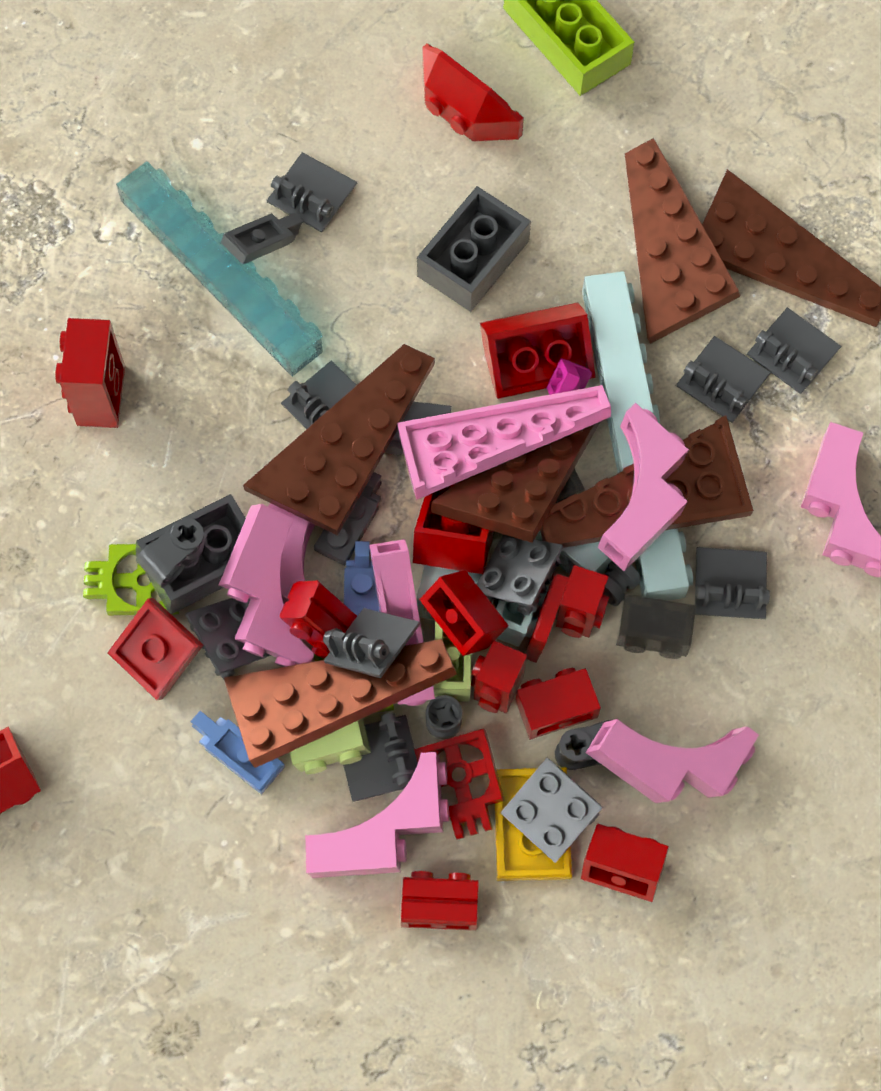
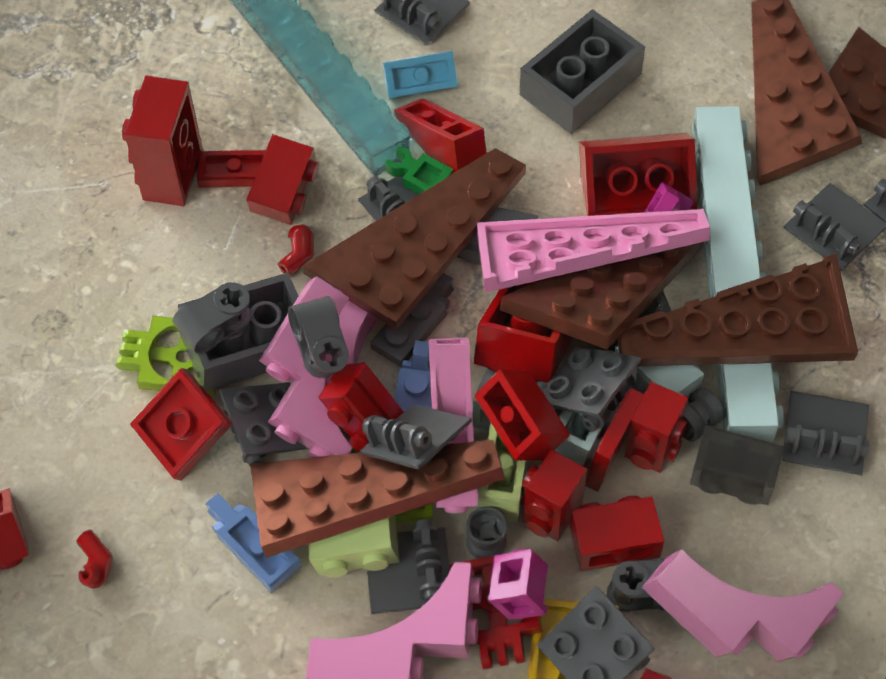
camera: 10 degrees right, 10 degrees down
(103, 785) = (99, 560): none -> red arm
(175, 382) = (228, 168): none -> red tile
(208, 395) = (282, 180): none -> red brick
(236, 461) = (302, 249): none -> red arm
(261, 236) = (363, 36): dark grey hinge -> none
(270, 557) = (318, 332): none -> dark grey piece
(320, 267) = (420, 74): none -> medium azure plate
(338, 375) = (419, 173): none -> green plate
(353, 331) = (443, 133): none -> red slope
(479, 764) = (519, 584): none -> dark pink brick
(653, 501) = (747, 326): bright pink arch -> none

